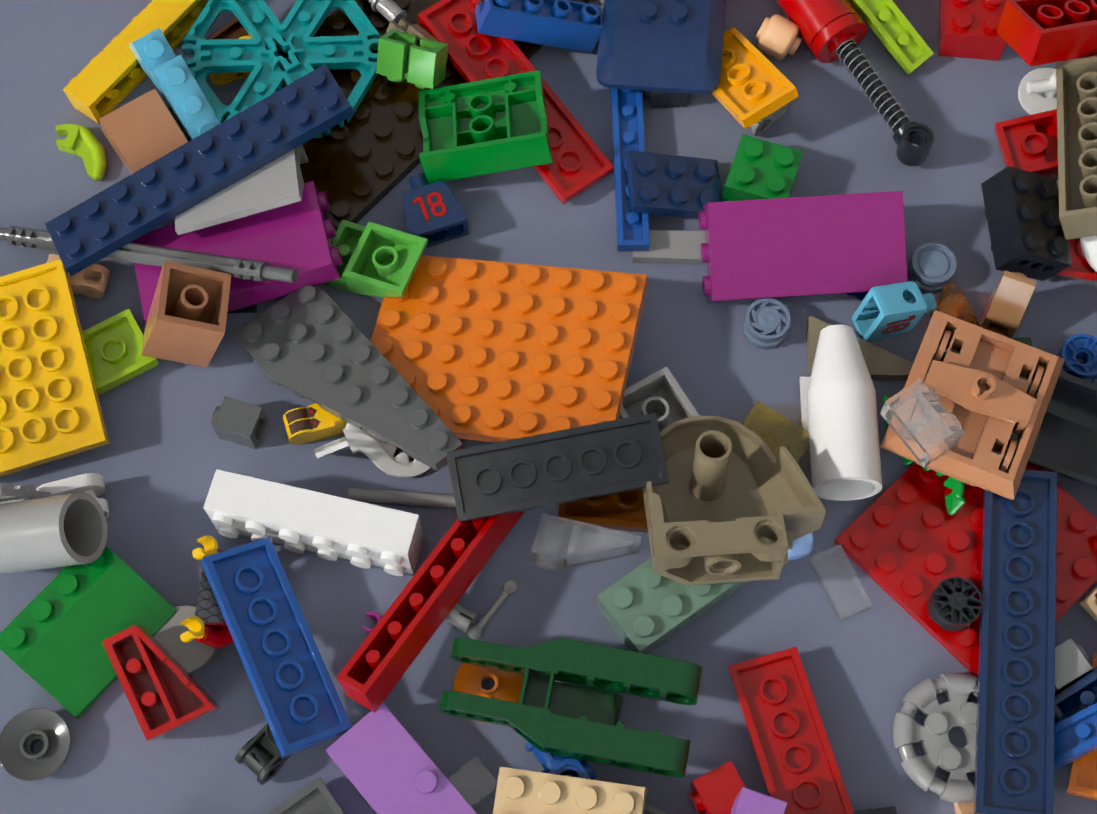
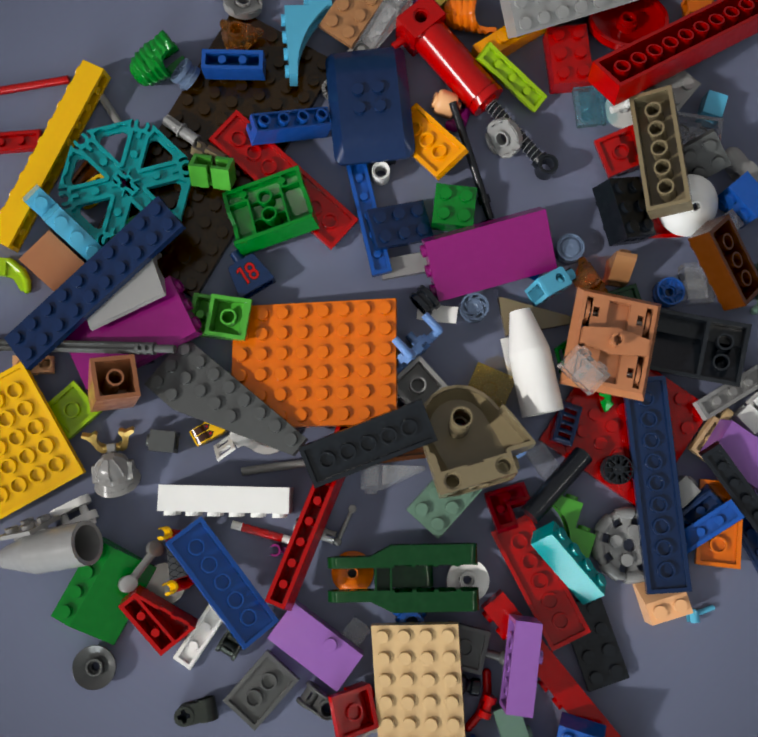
camera: 15 degrees left, 15 degrees up
(151, 448) = (113, 472): none -> light grey helmet
(179, 583) = (130, 582): none -> light grey bar
(216, 736) = (198, 638): none -> white tile
(349, 589) = (260, 532): none -> red bar
(661, 121) = (380, 166): none -> white beam
(668, 349) = (419, 343): none -> medium blue plate
(687, 721) = (478, 575): none -> white dish
(691, 297) = (424, 300): none -> black wheel
(709, 324) = (443, 314): none -> white sticker
(757, 622) = (502, 501): none -> dark red plate
(795, 67) = (450, 124): none -> magenta arm
(811, 174) = (483, 199): none -> black bar
(851, 606) = (556, 484): none -> black brick
(851, 734) = (568, 562): none -> teal brick
(863, 653) = (569, 512): none -> bright green arch
(870, 88) = (510, 131): none -> light grey tile
(870, 540) = (572, 432): none -> dark blue slope
(995, 79) = (588, 107): none -> clear light blue plate

